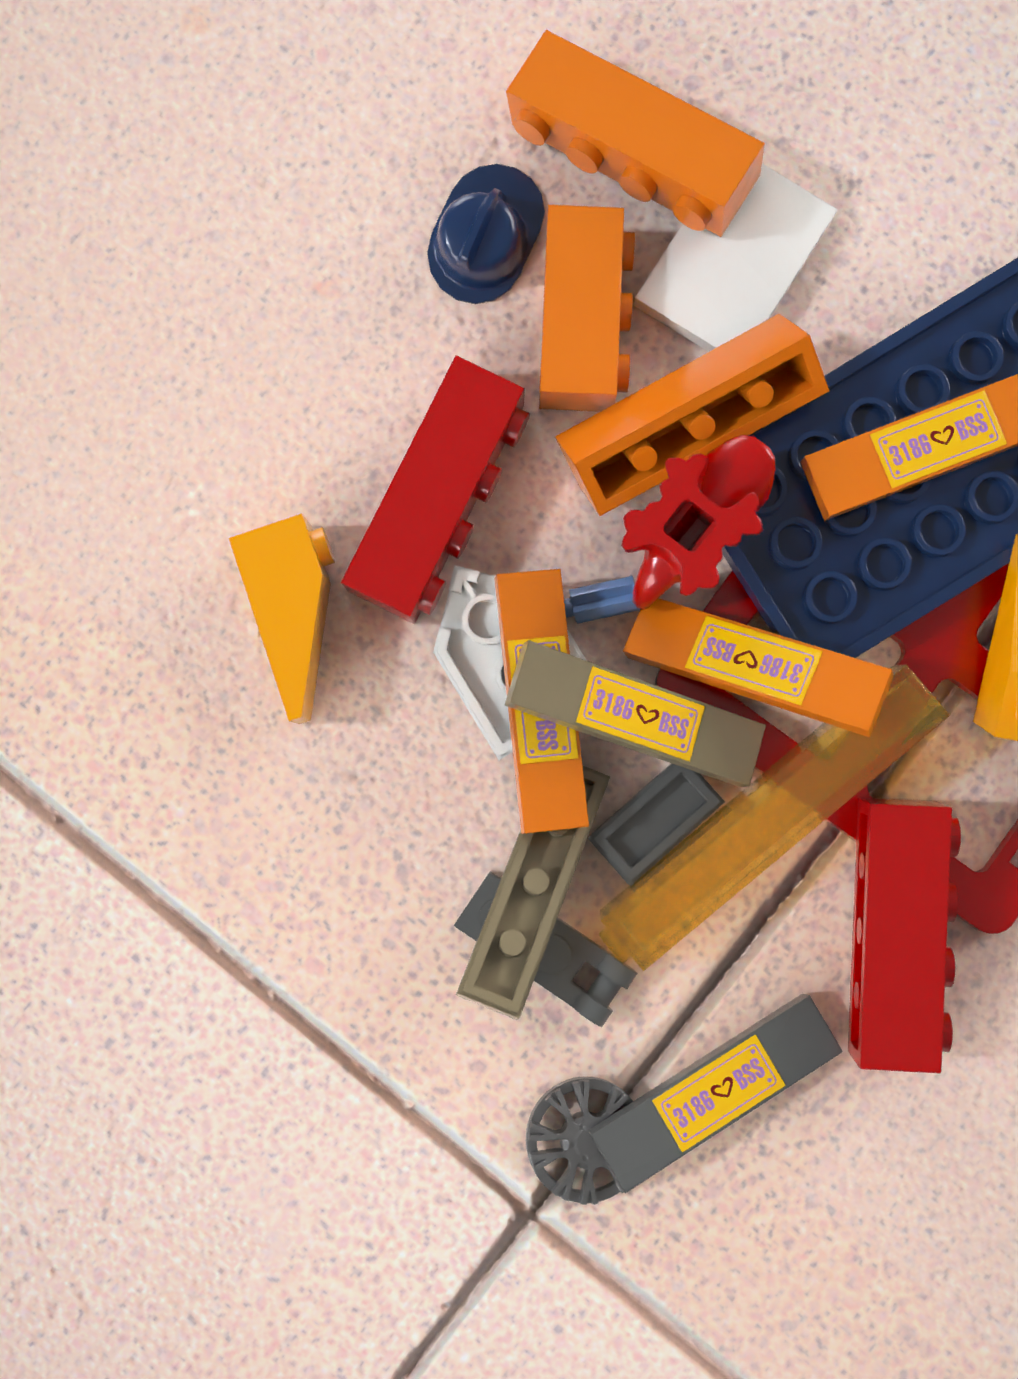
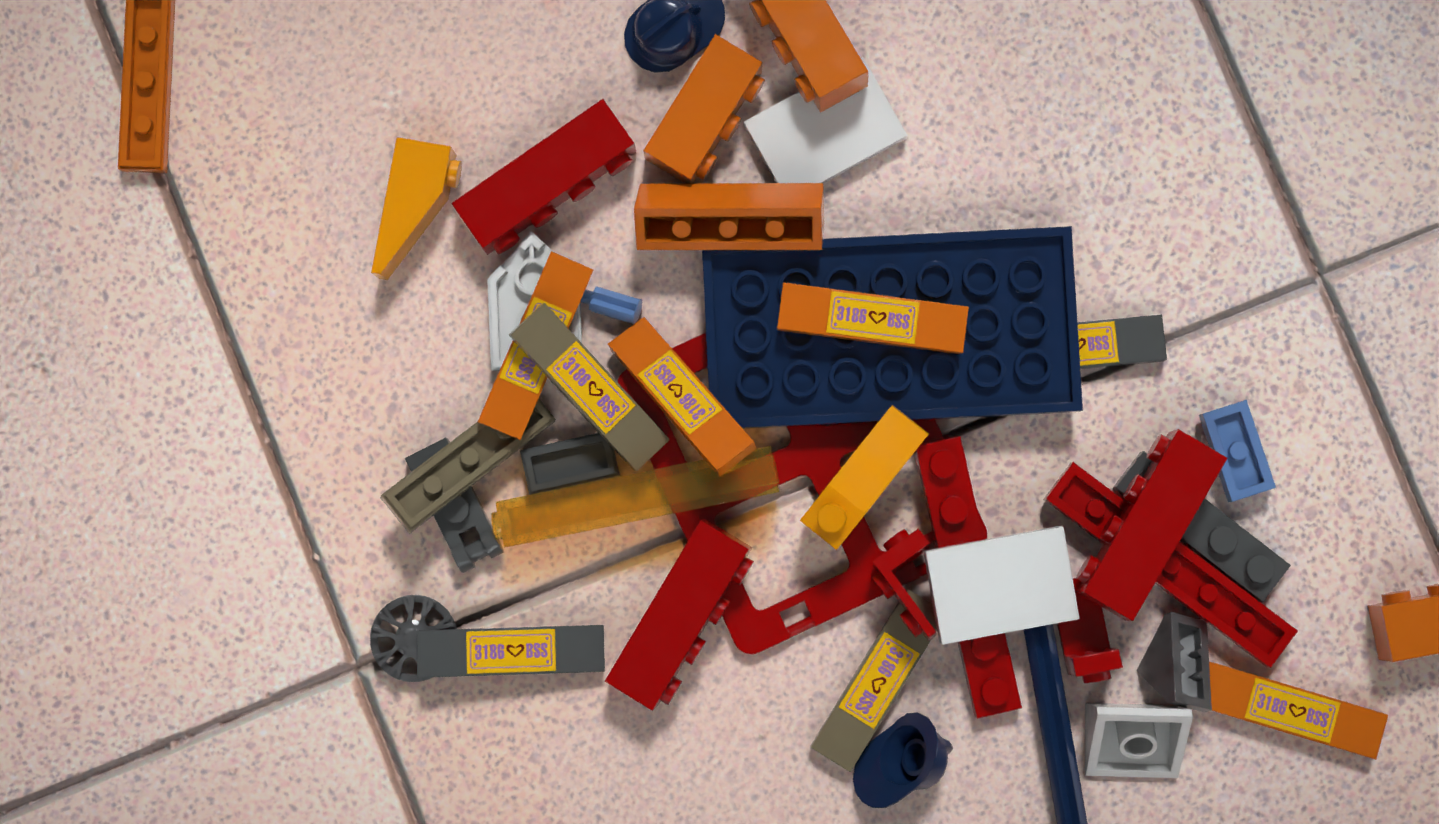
camera: 30 degrees right, 0 degrees up
(700, 511) = (685, 285): red animal -> none

